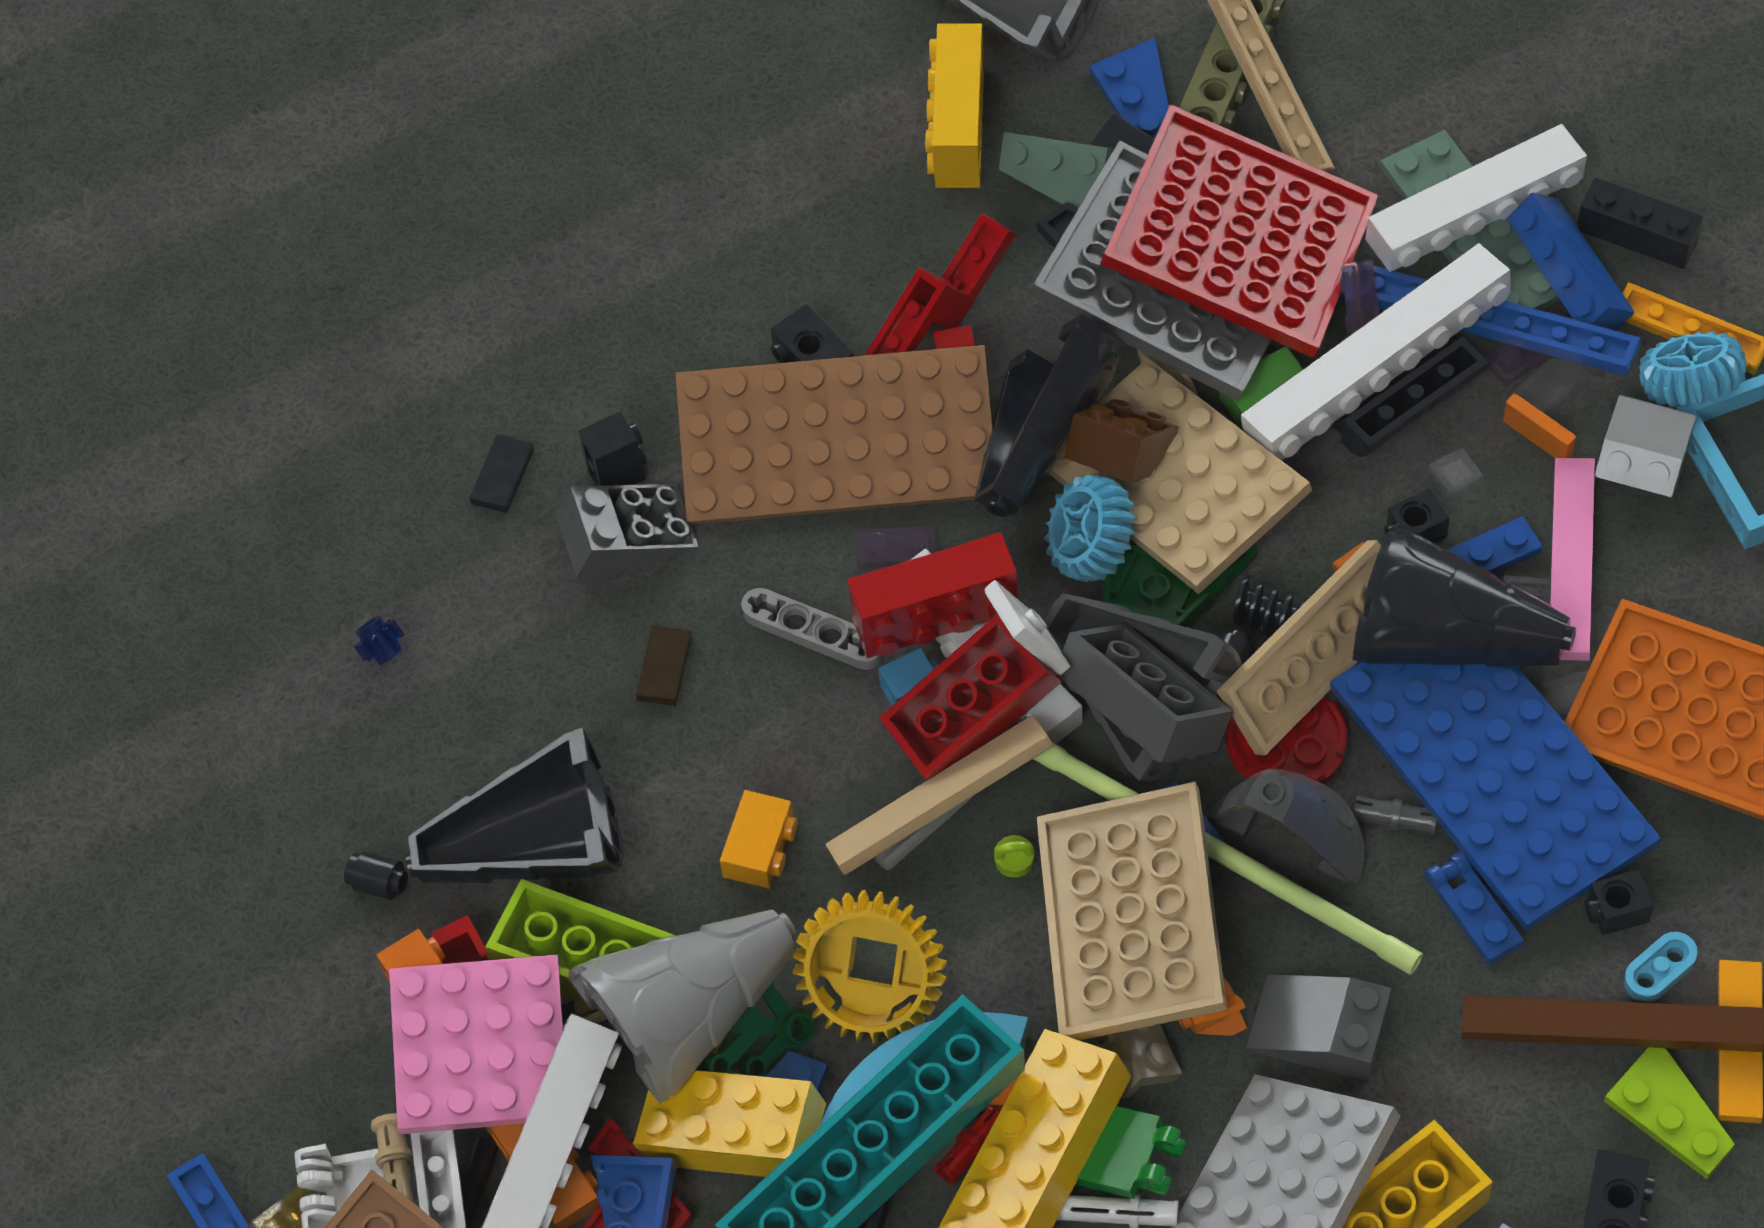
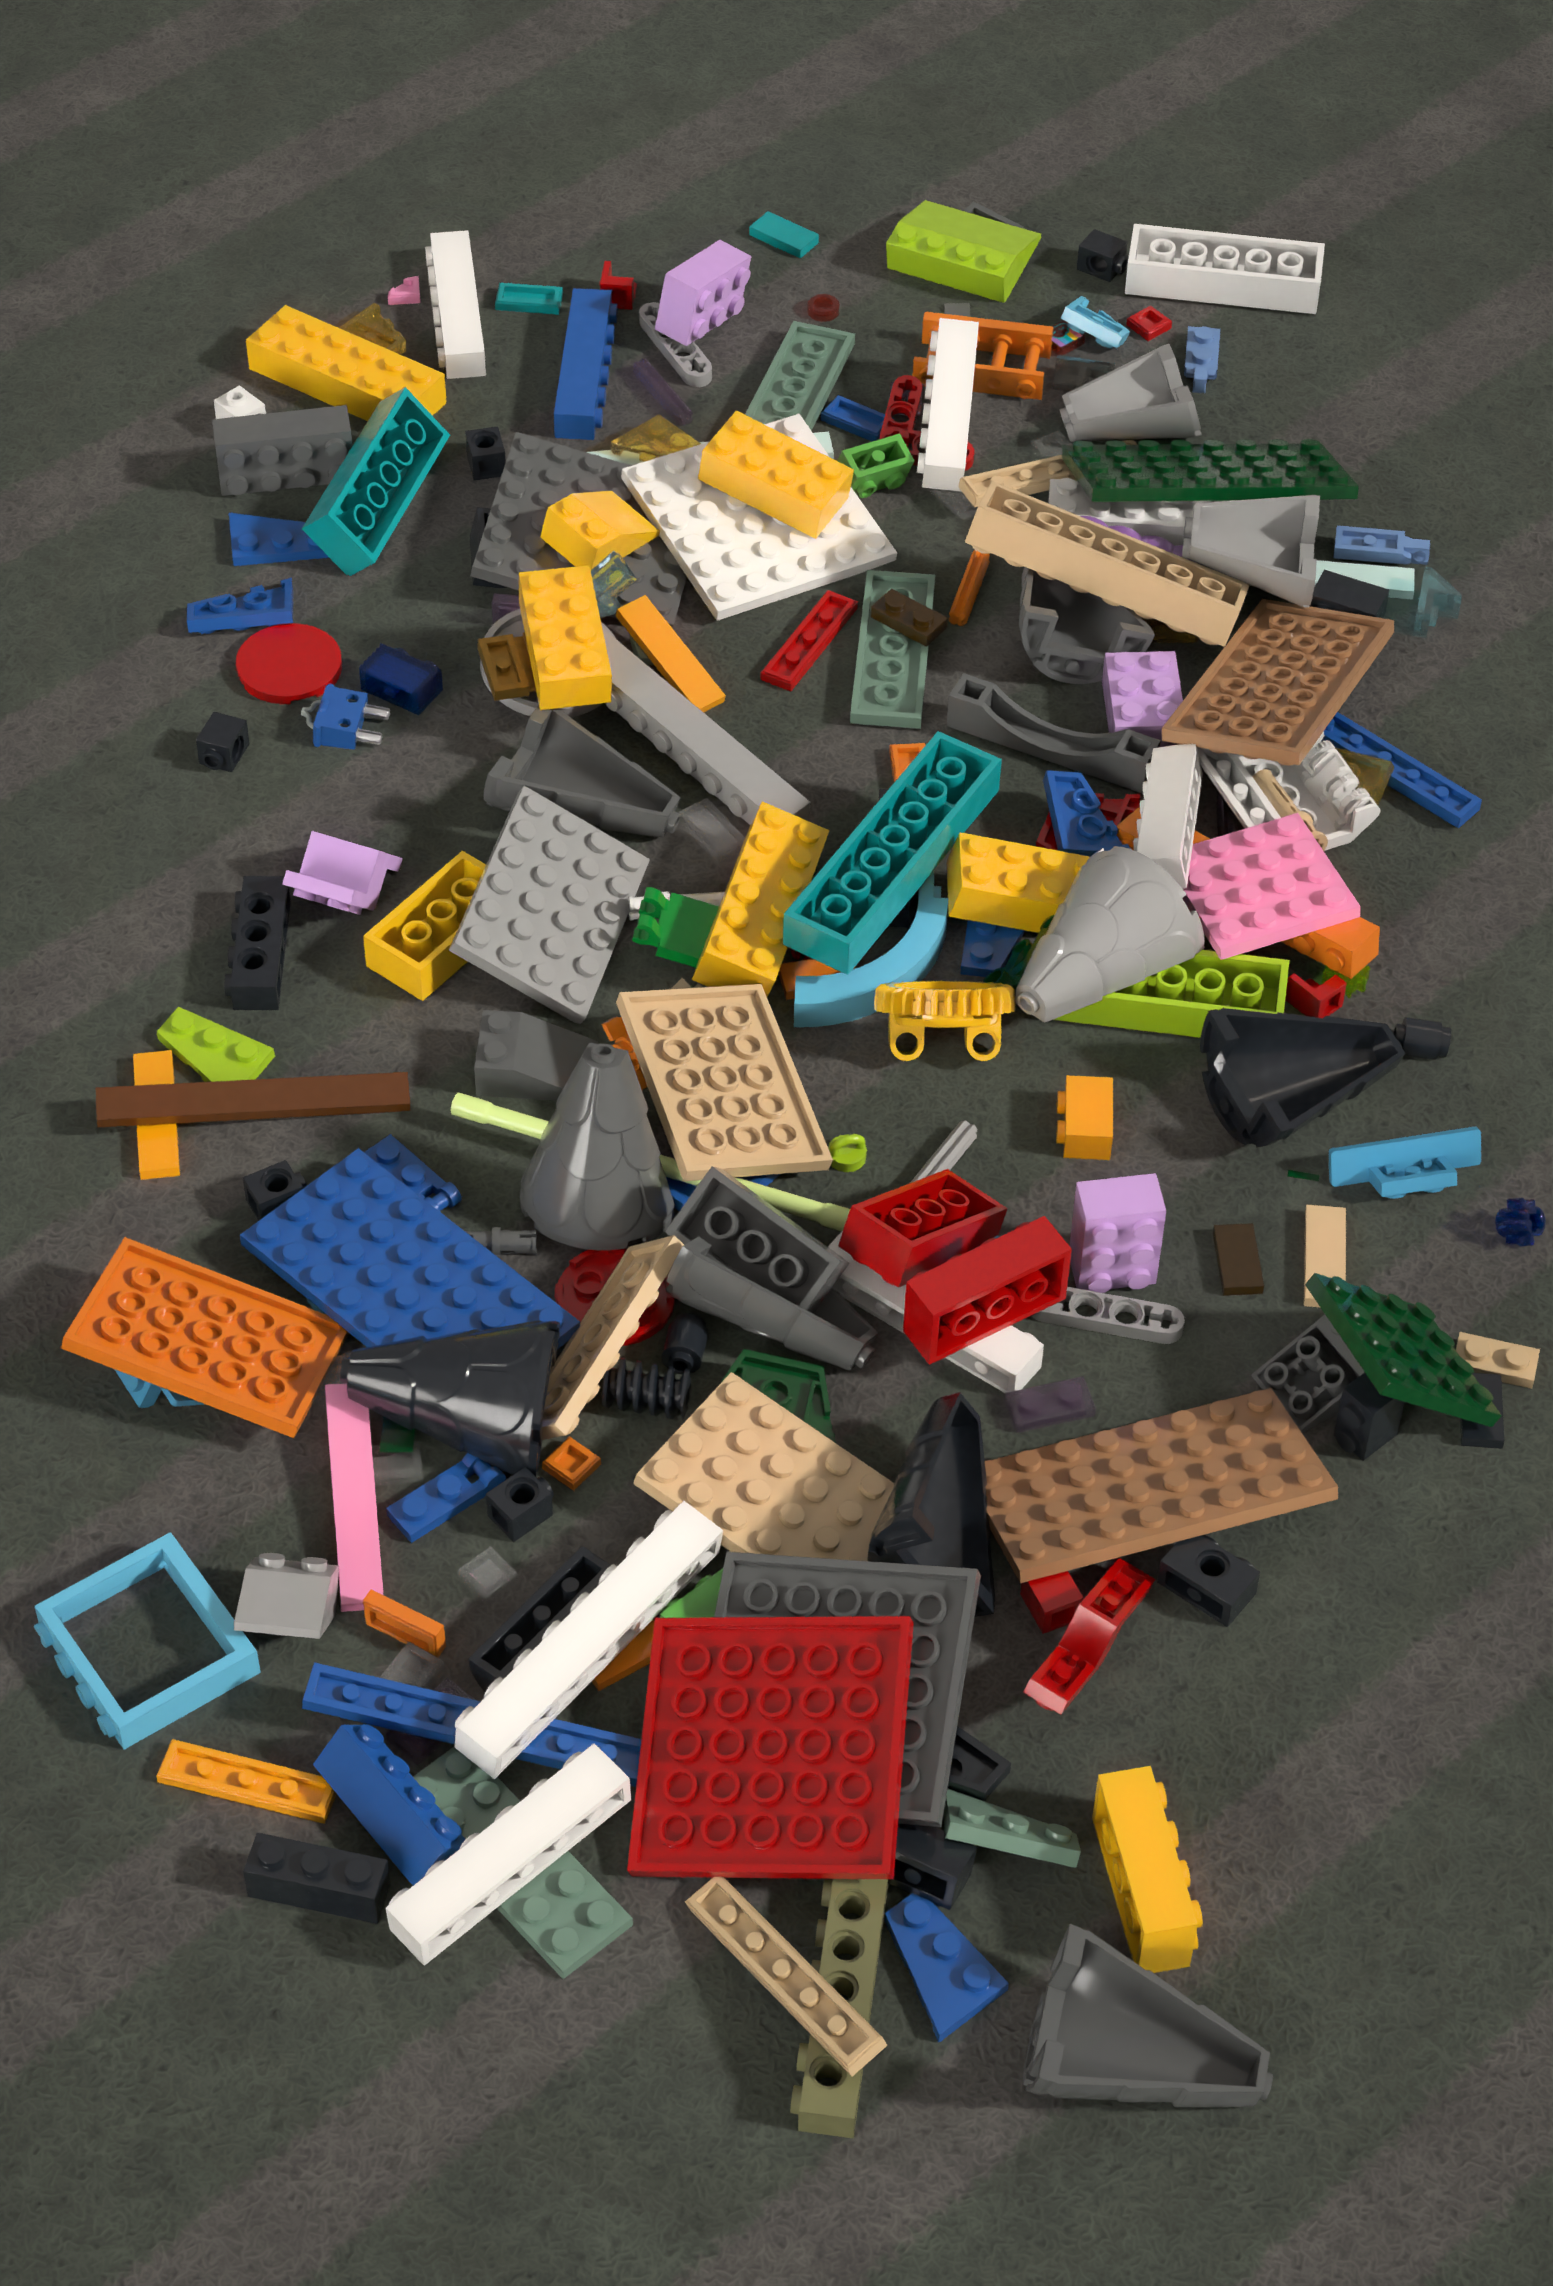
camera: 160 degrees right, 10 degrees down
(457, 719) = (1407, 1163): none -> dark azure bracket
(466, 519) = (1490, 1356): none -> tan plate
(563, 483) = (1403, 1350): none -> dark green plate
(578, 653) = (1324, 1245): none -> tan tile
(783, 654) = (1117, 1232): none -> lavender brick
(939, 794) = (948, 1150): tan tile -> none
(1027, 628) = (882, 1252): white plate -> none
(1090, 528) = (853, 1414): medium azure gear -> none
(1119, 440) = (843, 1494): reddish brown slope -> none
(1360, 294) = (621, 1711): clear purple plate -> none
(1658, 968) = (230, 1155): medium azure plate -> none
(1692, 369) = (279, 1687): medium azure gear -> none

